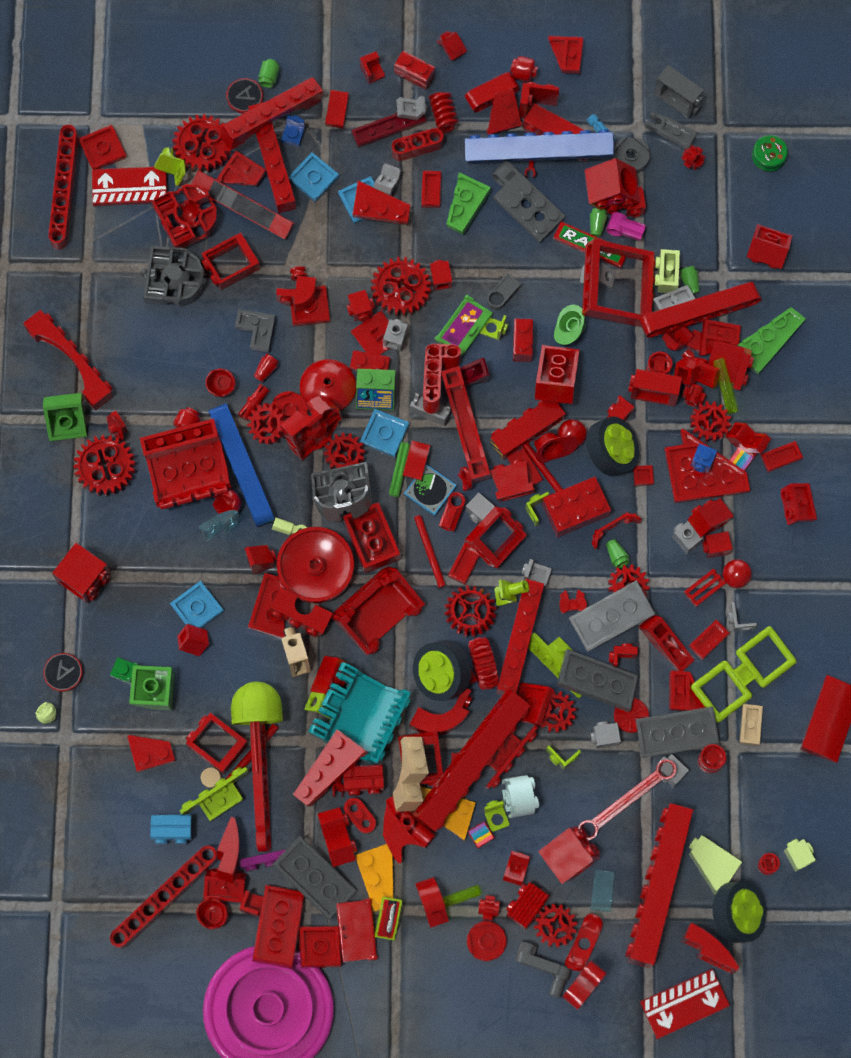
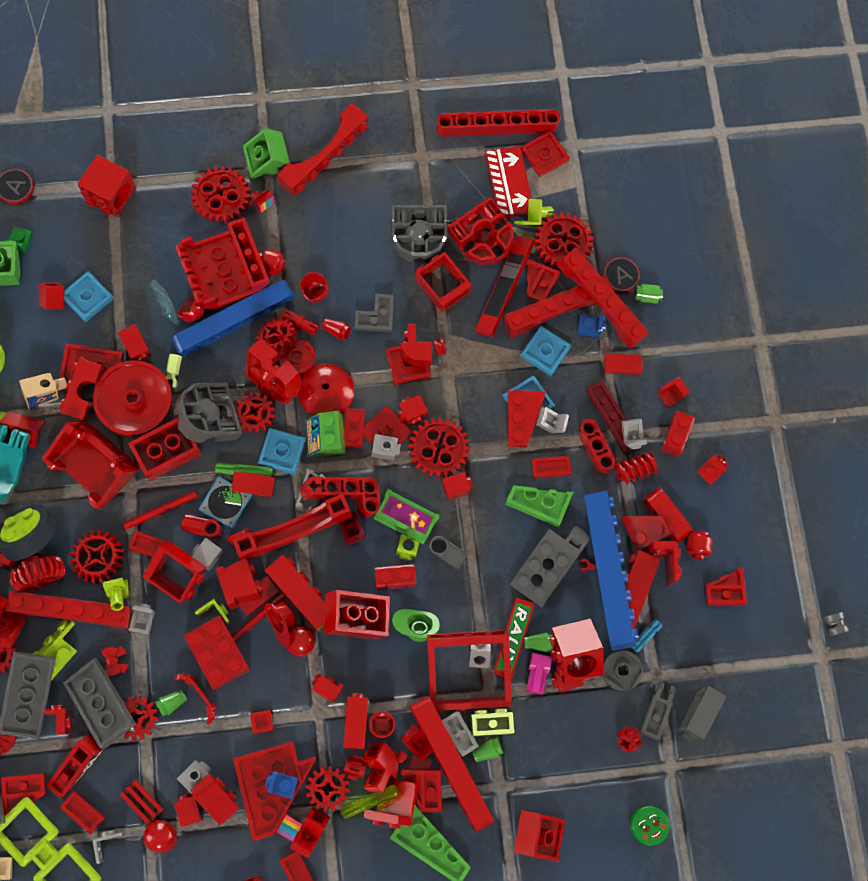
camera: 75 degrees right, 0 degrees up
(612, 446) = (282, 683): black wheel -> none

